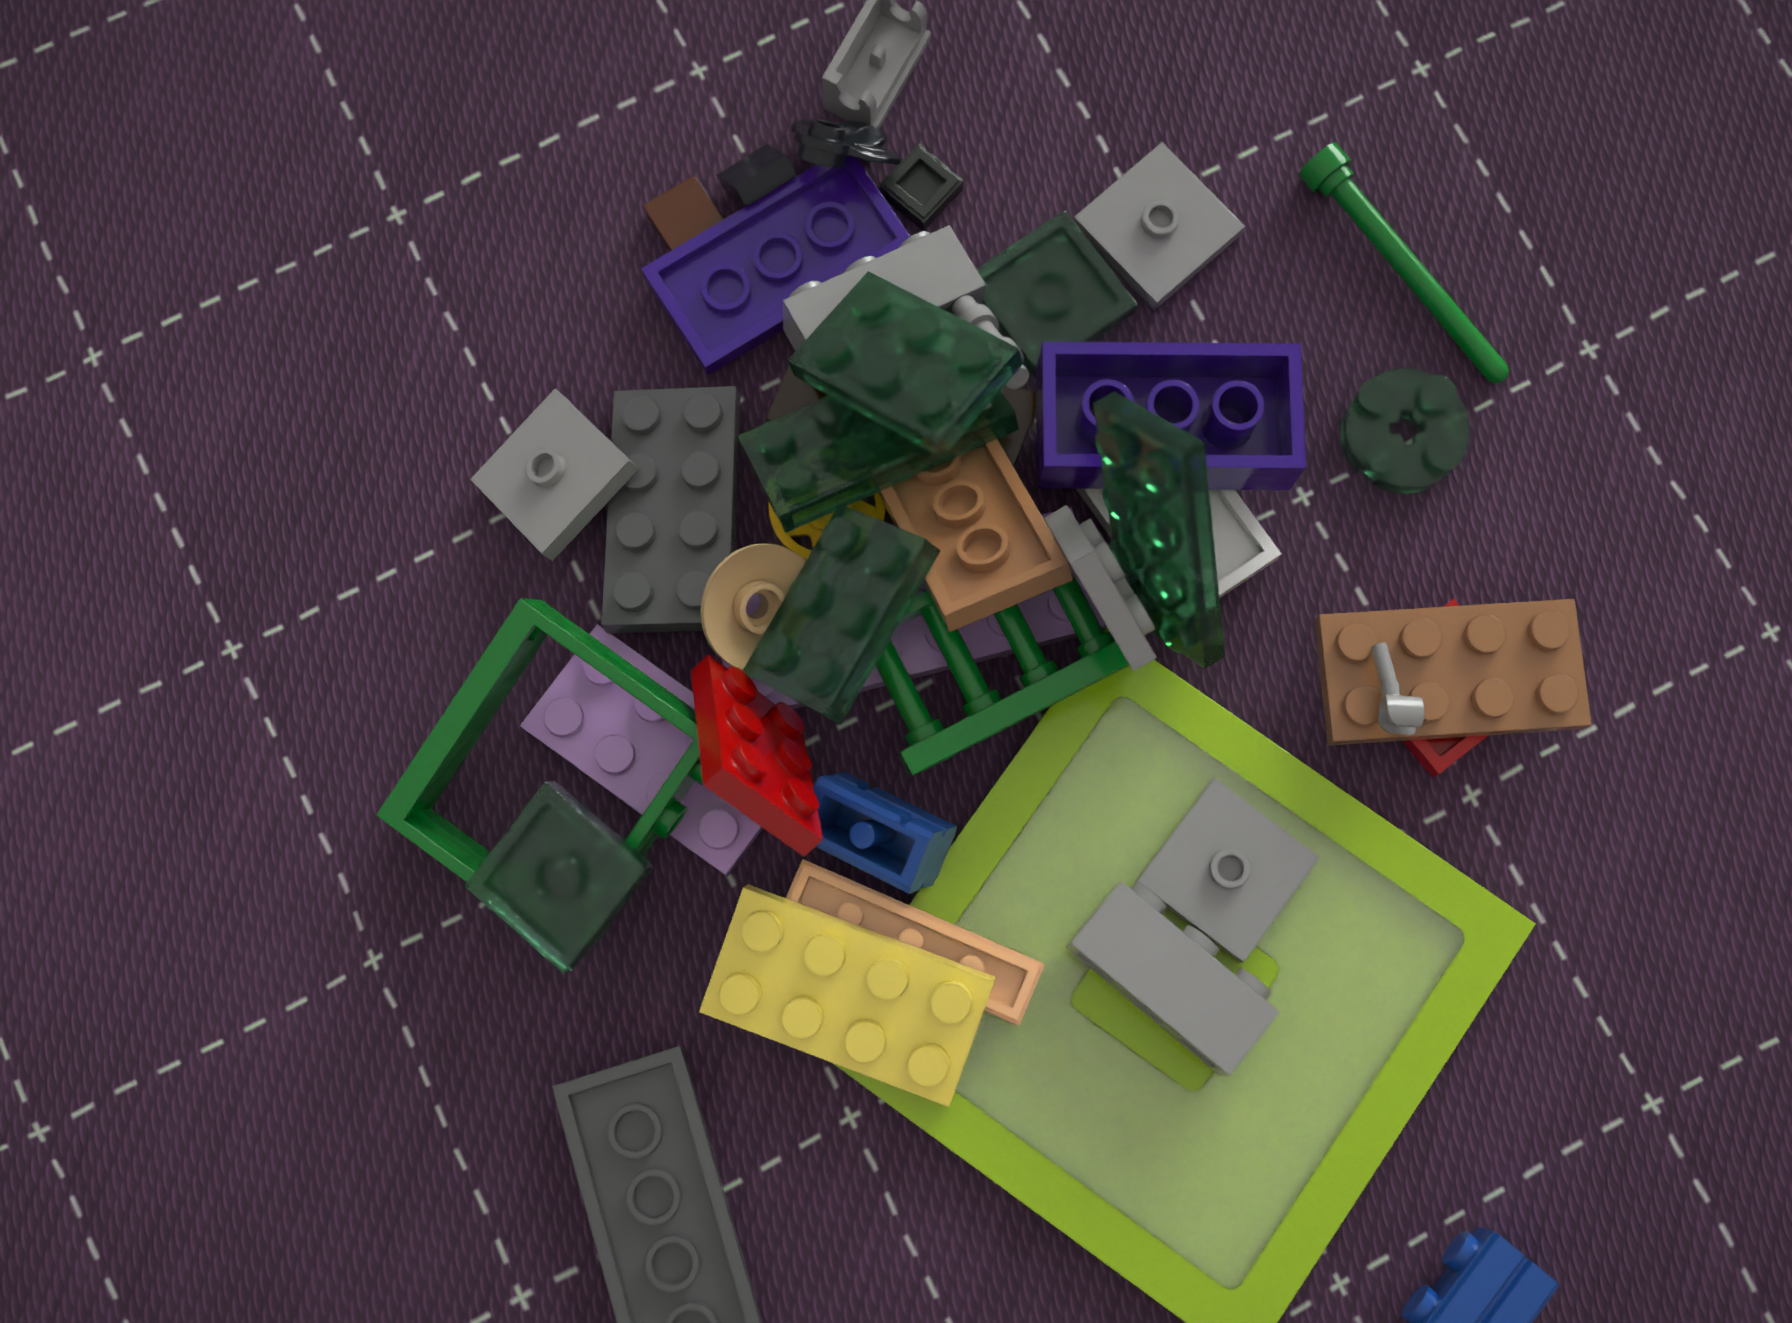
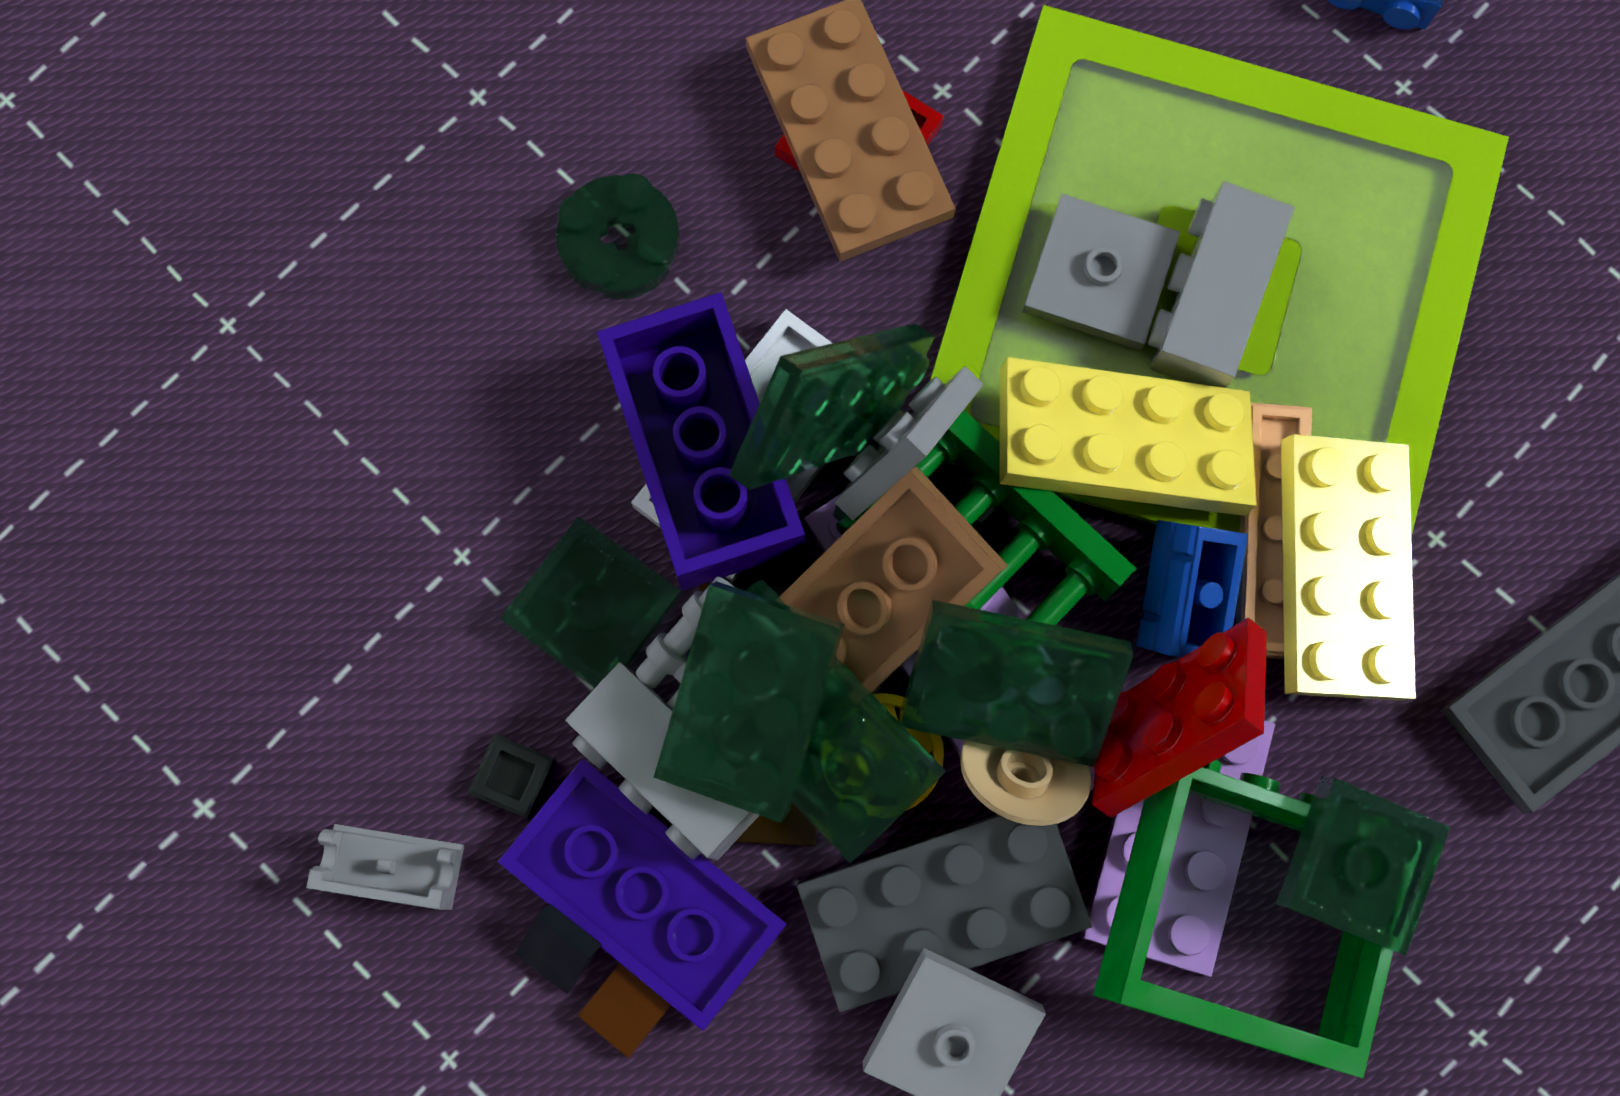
camera: 110 degrees left, 0 degrees up
(830, 143) = (501, 870): black plate -> none
(1046, 820) = (1126, 437): none -> light yellow plate
(1158, 225) = (480, 526): light grey plate -> none
(1332, 177) = (378, 373): green piece -> none
(1395, 712) = (916, 158): light grey hand -> none

